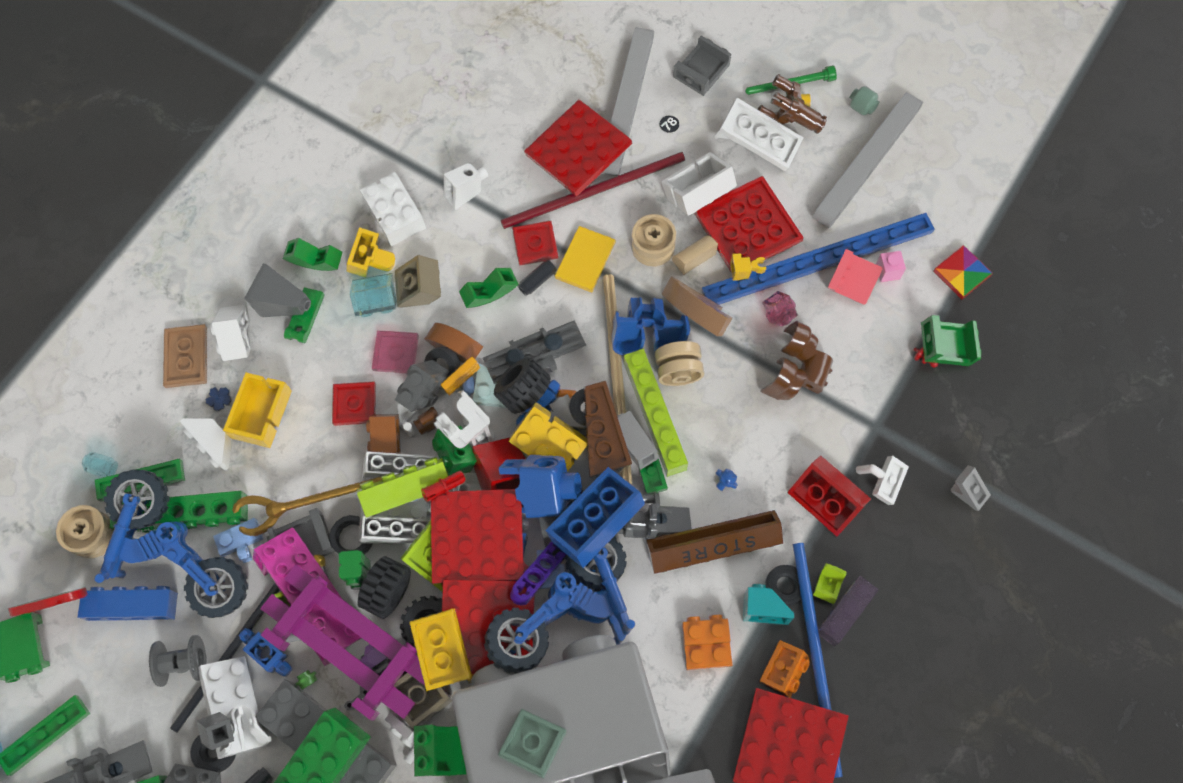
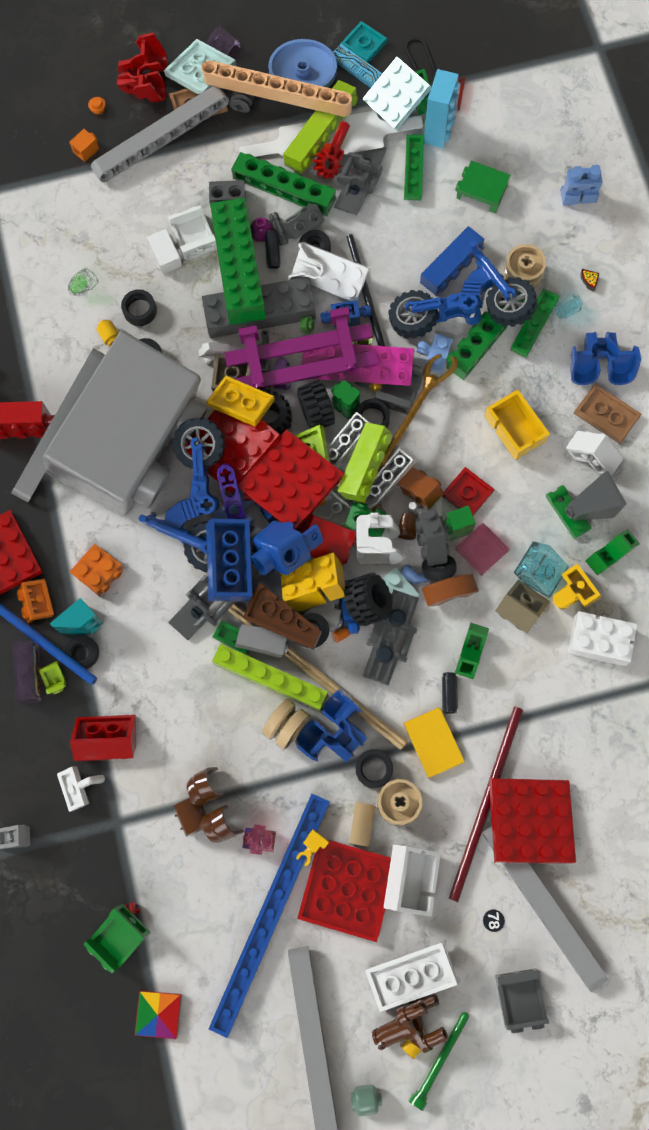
camera: 135 degrees right, 5 degrees up
(47, 602) = (492, 214): red tile -> none
(54, 472) = (589, 279): none -> tile
(125, 408) = (621, 366): none -> blue piece
(178, 661) = (392, 253): dark grey hose -> none
(210, 439) = (527, 382): white slope -> none
(215, 730) = (315, 245): dark grey brick -> none
(218, 398) = (553, 412): dark blue plant -> none
(388, 377) = (459, 523): none -> green brick
(437, 751) = (191, 353): green panel -> none
(443, 486) = (339, 482): red axle -> none
(460, 376) = (417, 569): light orange tile -> none
(463, 184) = (574, 699): white torso -> none
(532, 743) = (123, 389): sand green tile -> none
(535, 243) = (481, 719): red tile -> none
(646, 265) = (385, 758): none -> black tyre
(697, 306) = (315, 777): medium nougat slope -> none
(715, 541) = (148, 631): reddish brown brick -> none
(726, 479) = (181, 681): blue plant -> none
(855, 277) = (230, 921): coral bracket -> none
(892, 265) = (212, 959): bright pink brick -> none

